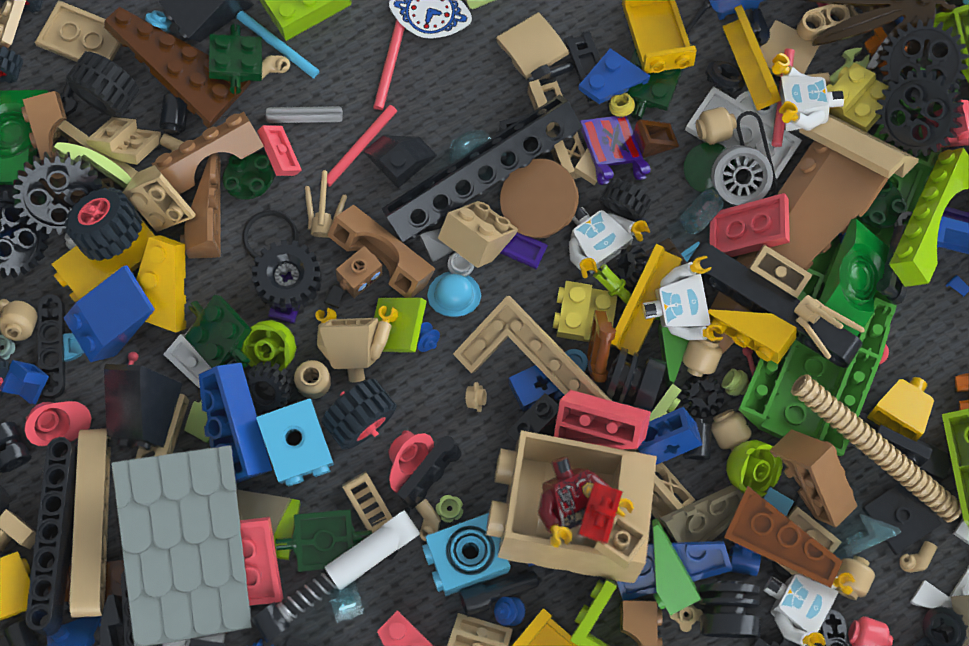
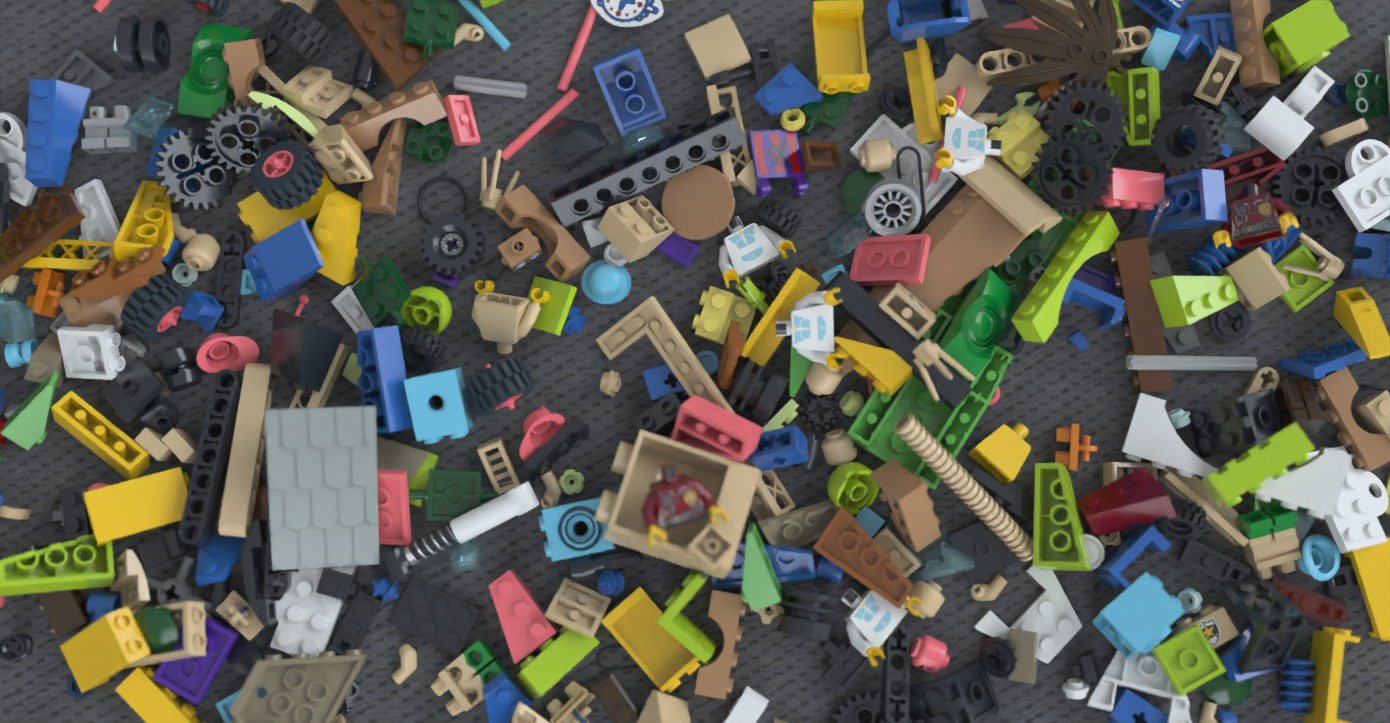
camera: 10 degrees right, 10 degrees up
(307, 372) = (458, 339): tan head -> none
(449, 97) = (629, 89): none -> blue slope
(600, 512) = (695, 521): red hips -> none

